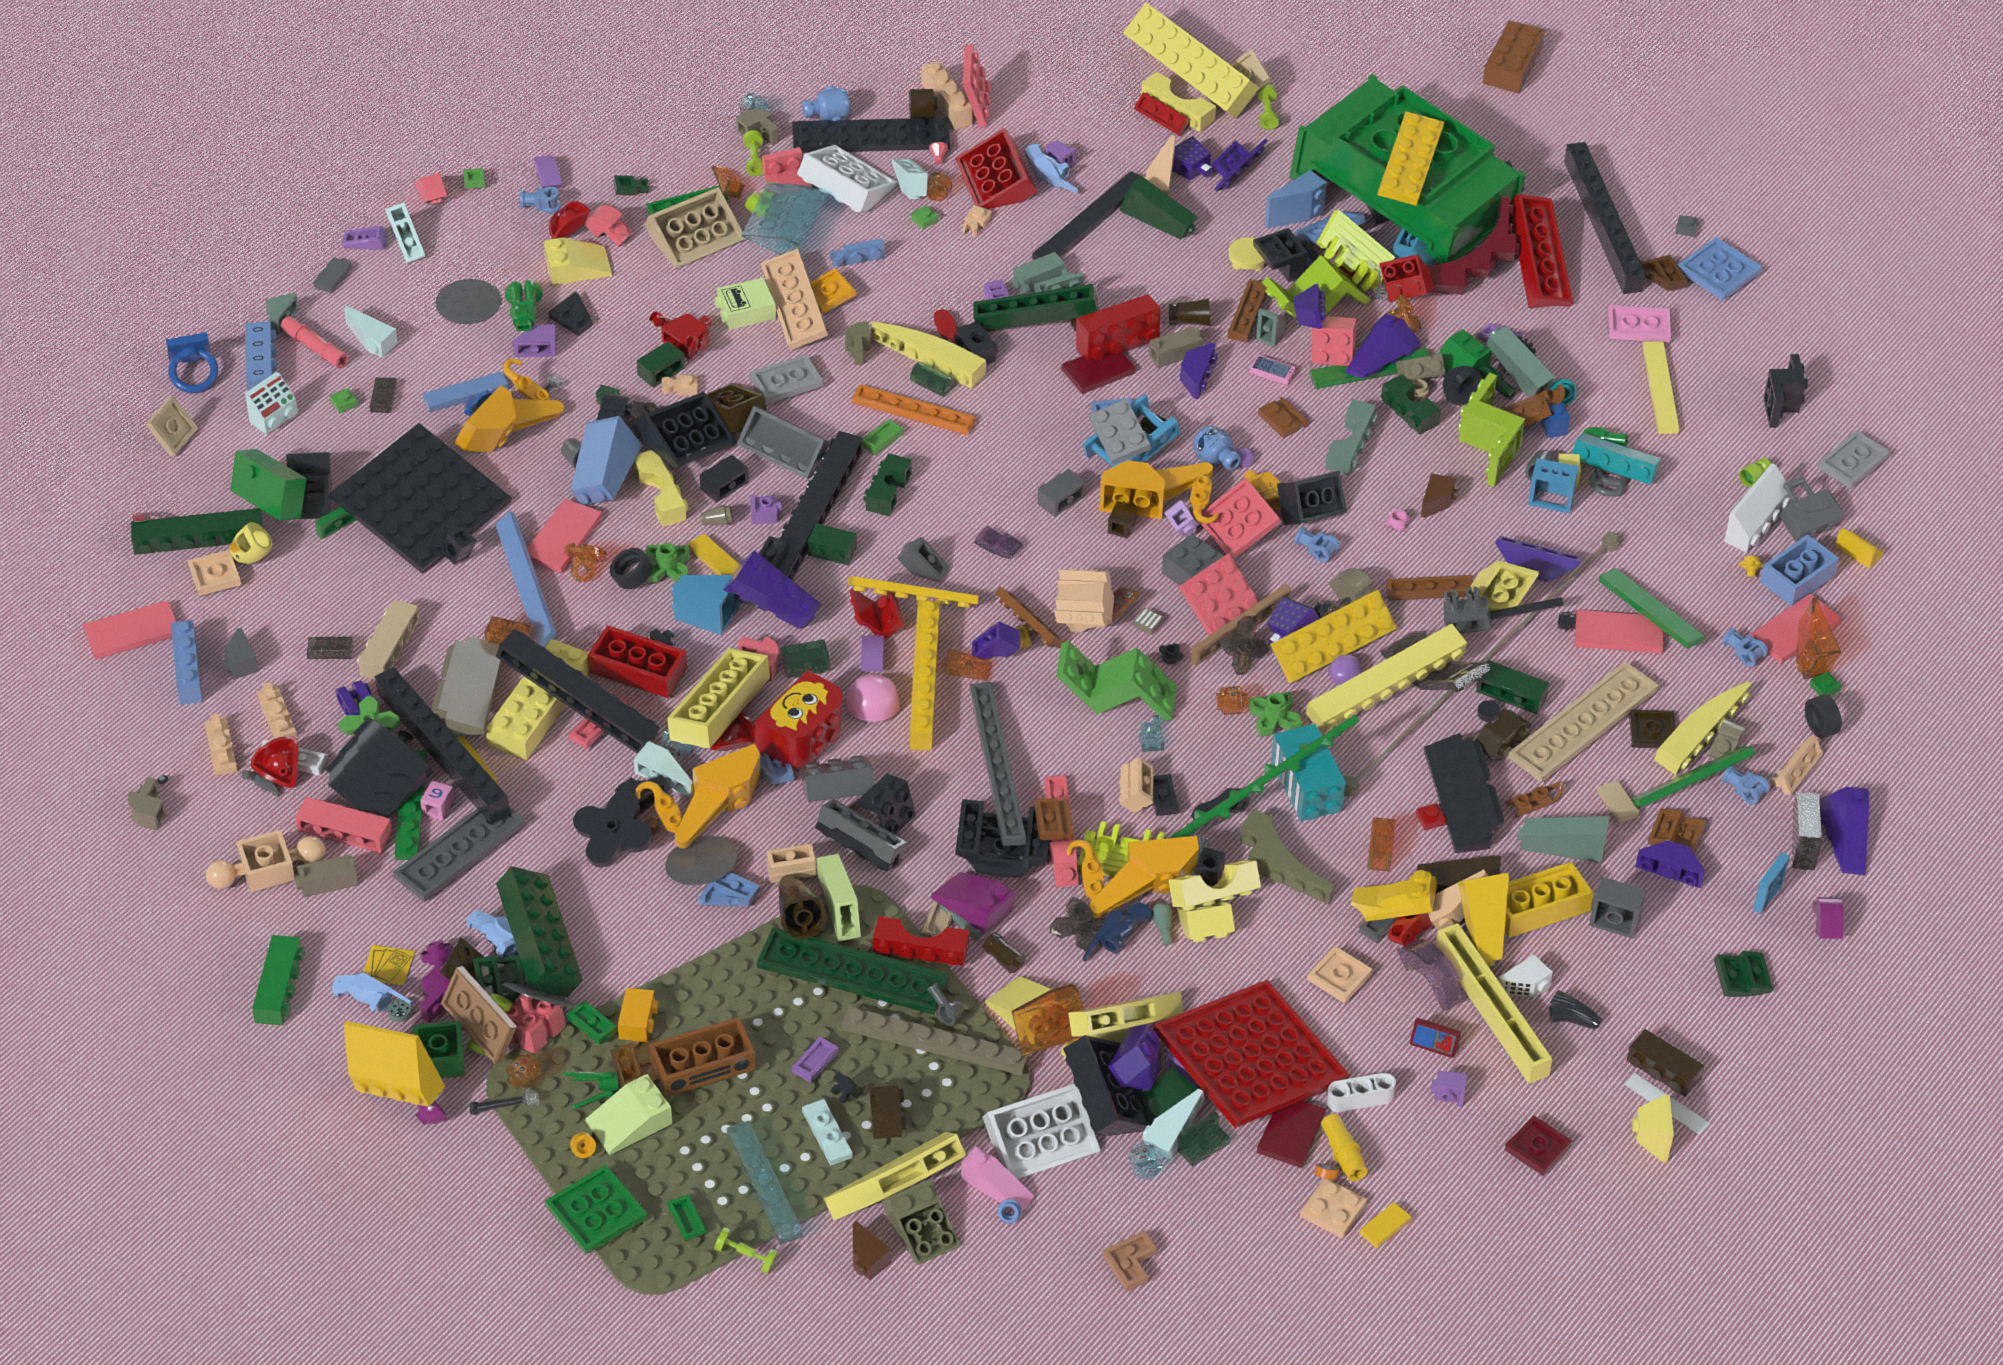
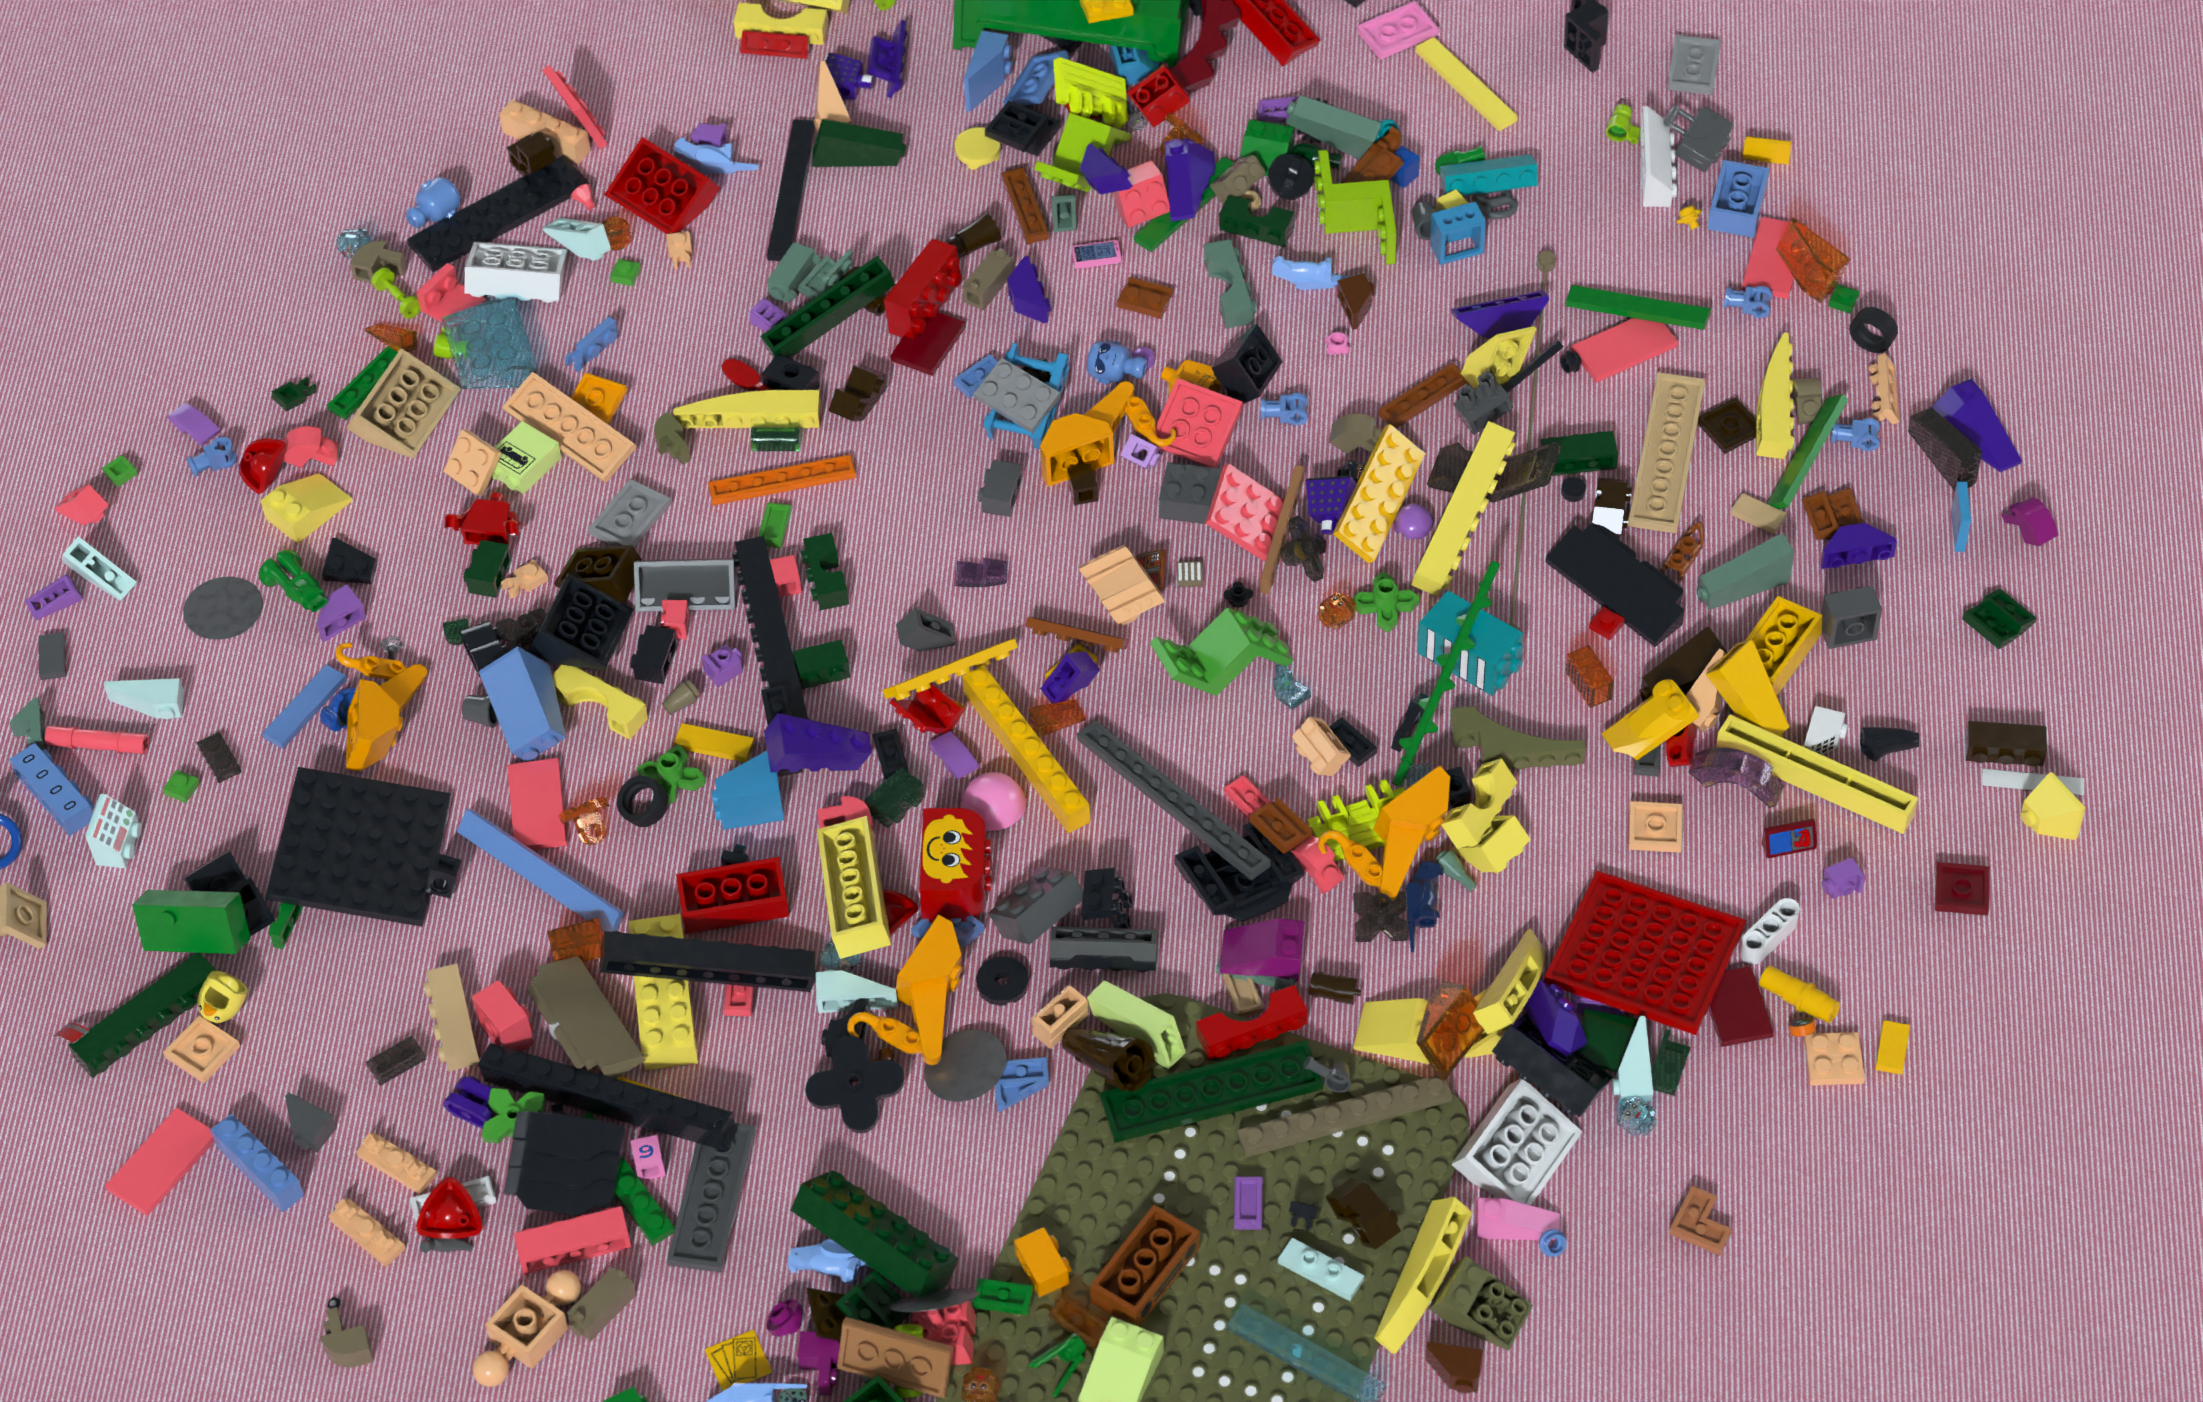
camera: 30 degrees left, 5 degrees up
(417, 657) = (503, 1017): none -> coral brick
(707, 288) = (472, 462): none -> light nougat plate
(759, 462) = (676, 617): none -> coral brick
(776, 810) = (1002, 968): none -> black tile
(829, 627) = (889, 752): none -> black plate
(858, 473) = (786, 575): none -> coral brick
(1016, 380) = (860, 394): none -> dark brown brick
(1414, 458) = (1306, 274): none -> light blue animal

